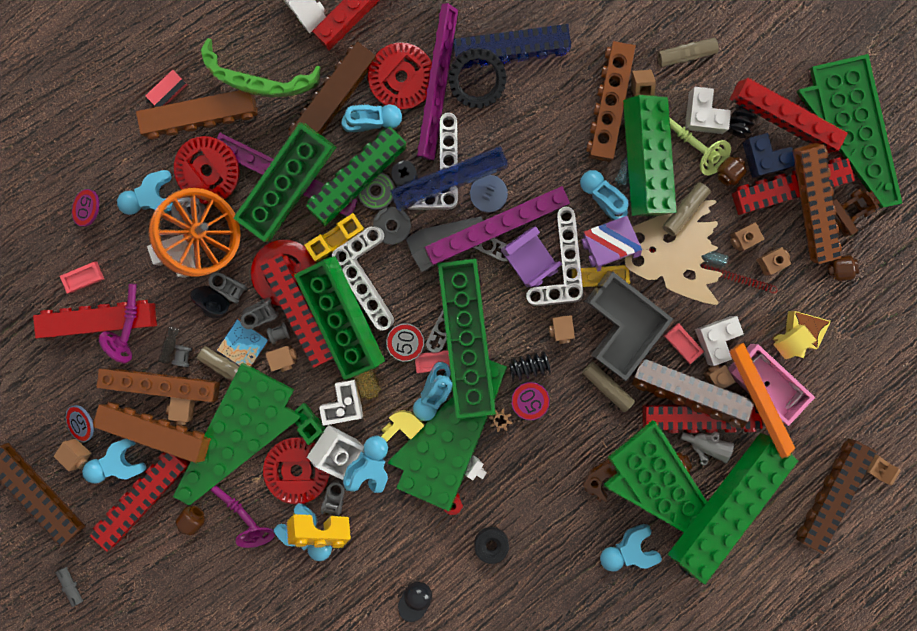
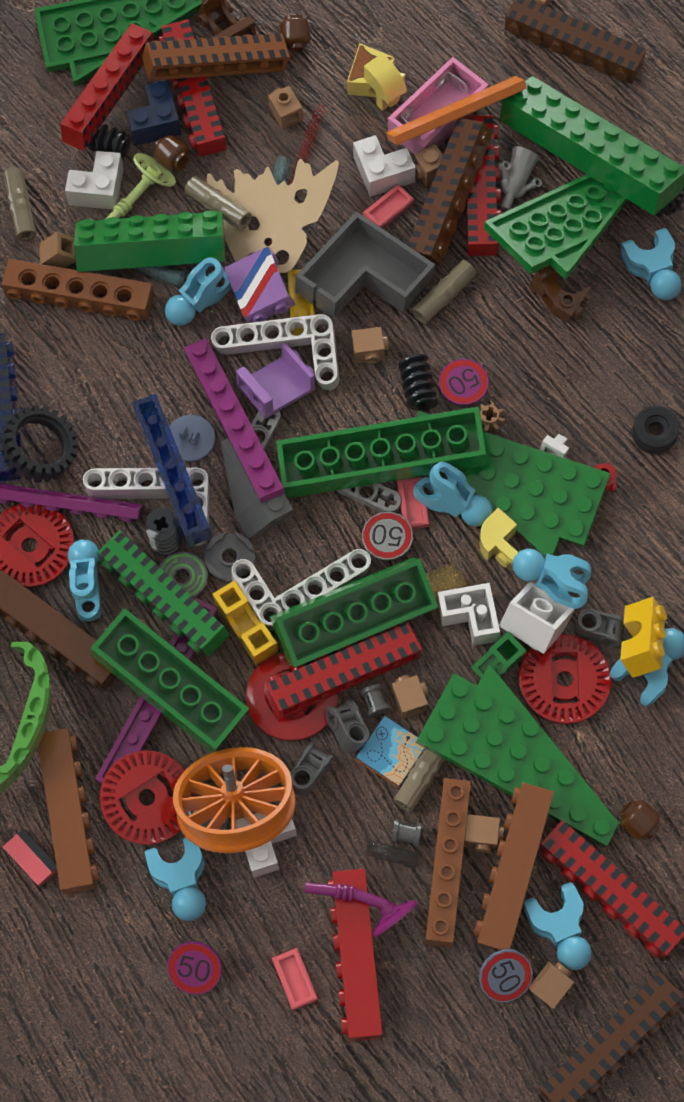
camera: 90 degrees left, 20 degrees down
(210, 301) = (331, 791): black cap -> none
(254, 532) = (650, 731): magenta dish -> none
(746, 237) = (254, 136): medium nougat brick -> none

